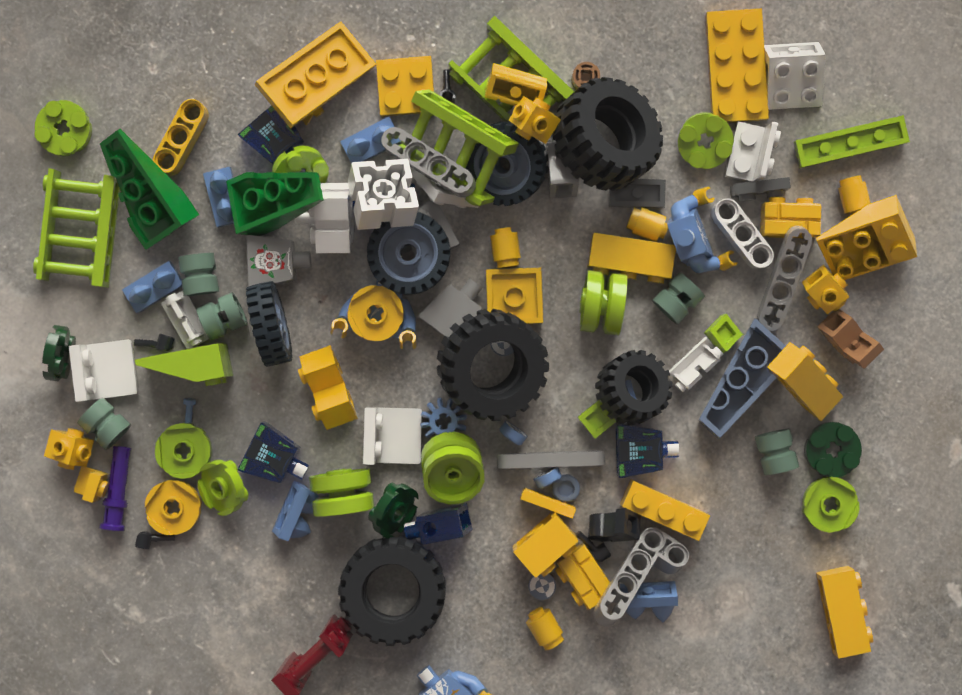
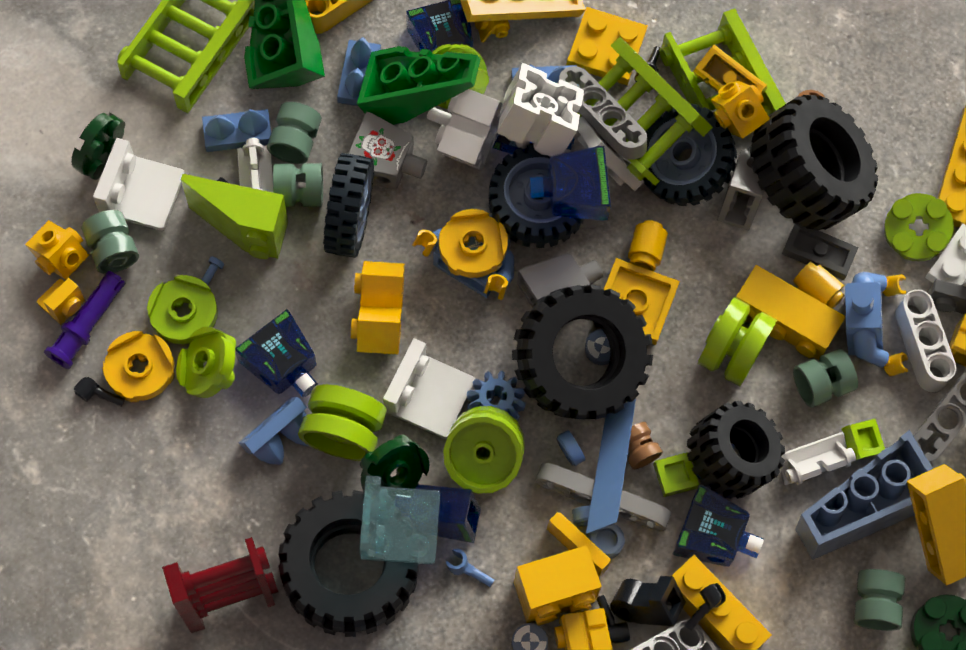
camera: 15 degrees right, 20 degrees down
(417, 559) = (399, 523): none -> clear light blue bracket
(434, 241) = (576, 184): none -> clear blue torso
(478, 551) = (468, 569): none -> medium blue hand
(550, 446) = (611, 468): none -> medium blue sticker
(559, 403) = (641, 447): none -> medium nougat wheel
(659, 512) = (713, 597): none -> black hand

